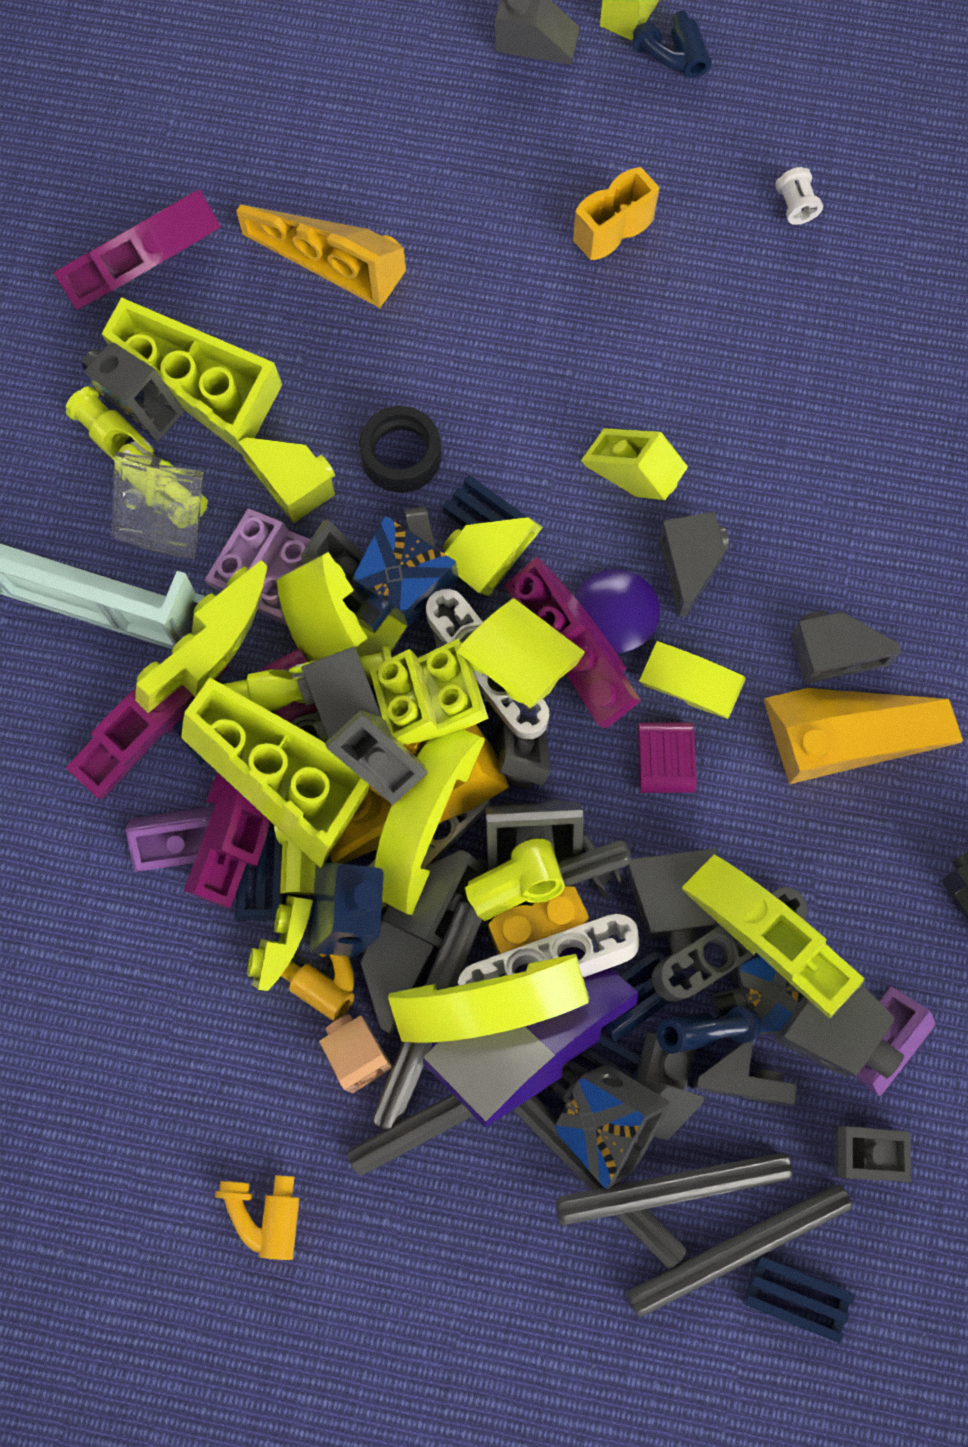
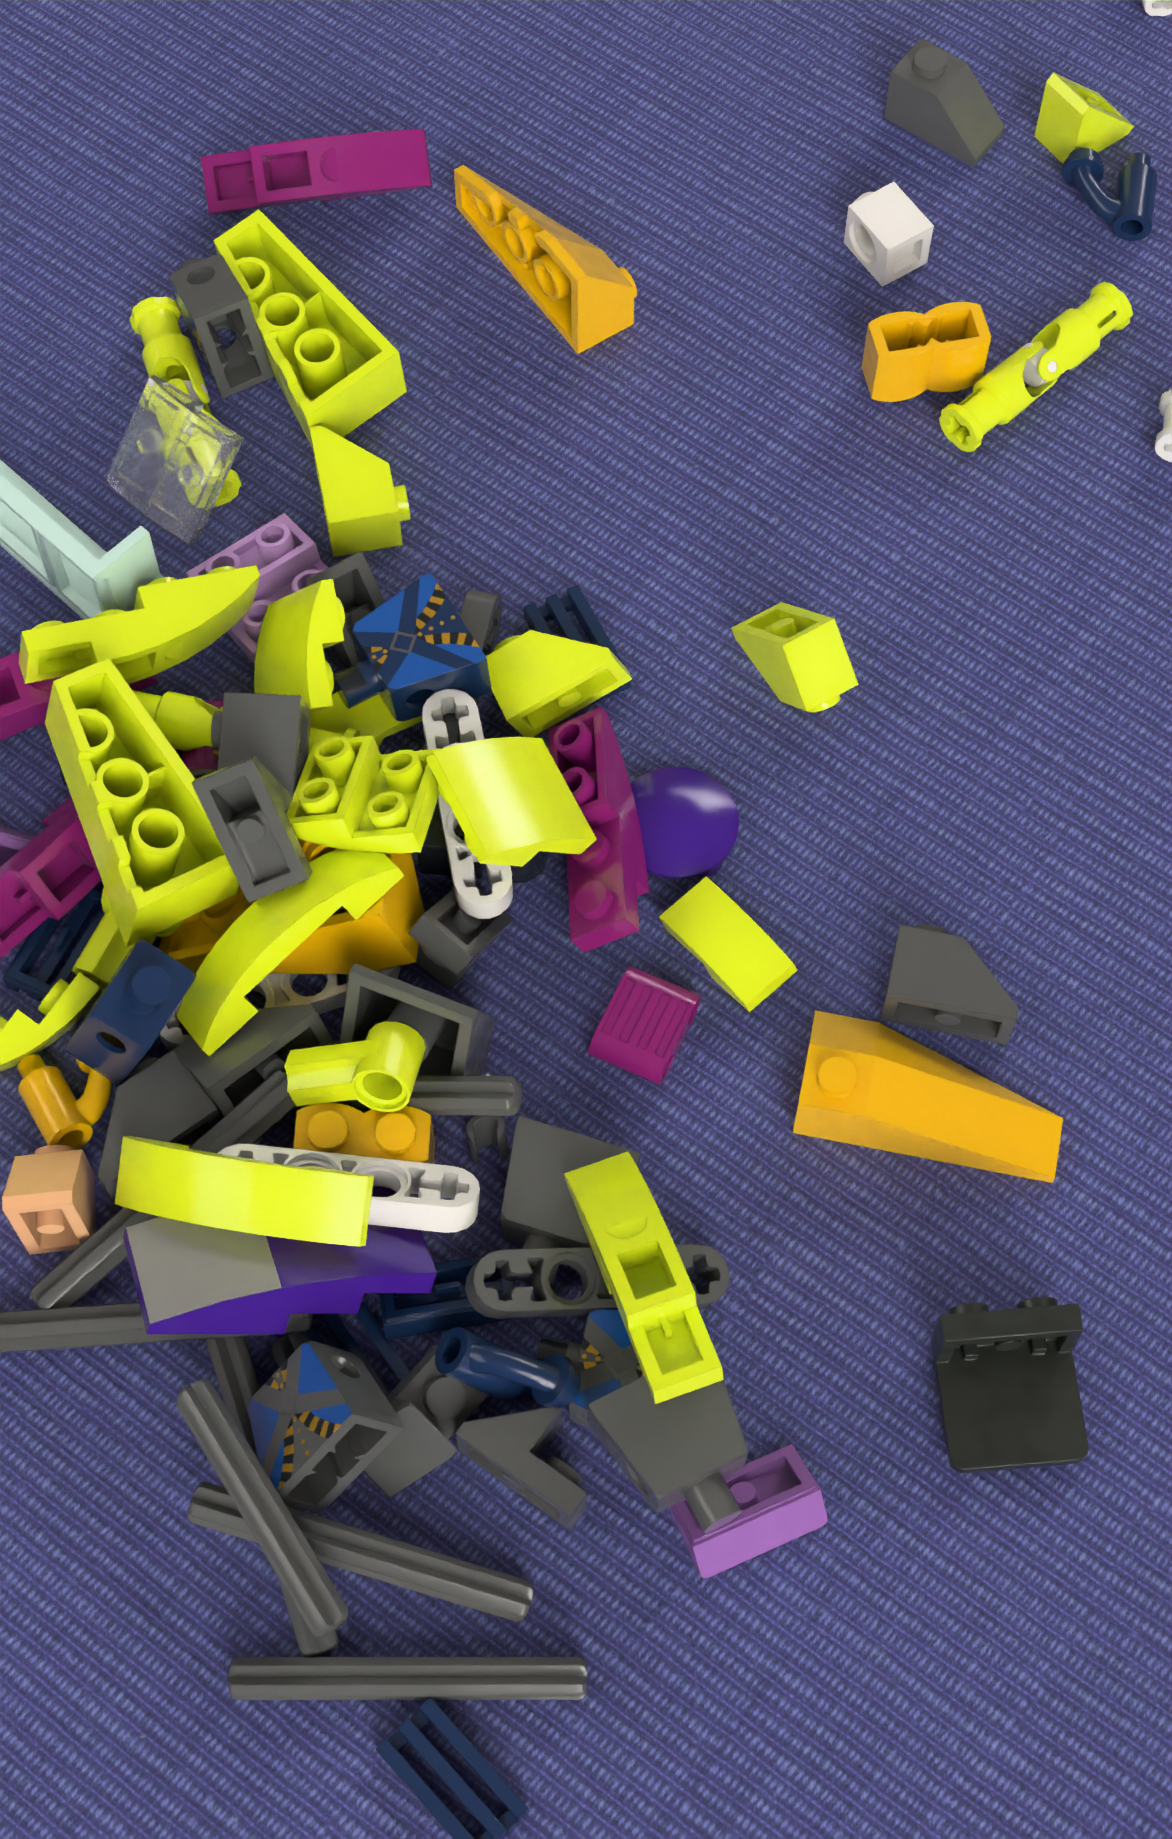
camera: 25 degrees right, 10 degrees down
(396, 419) = (500, 484): black tyre -> none
(544, 136) = (888, 233): none -> white brick
(609, 1197) = (262, 1508): none -> dark grey axle
(686, 193) = (1056, 348): none -> neon yellow piece
(692, 555) = (809, 796): dark grey slope -> none
(871, 1154) = (641, 1633): dark grey slope -> none

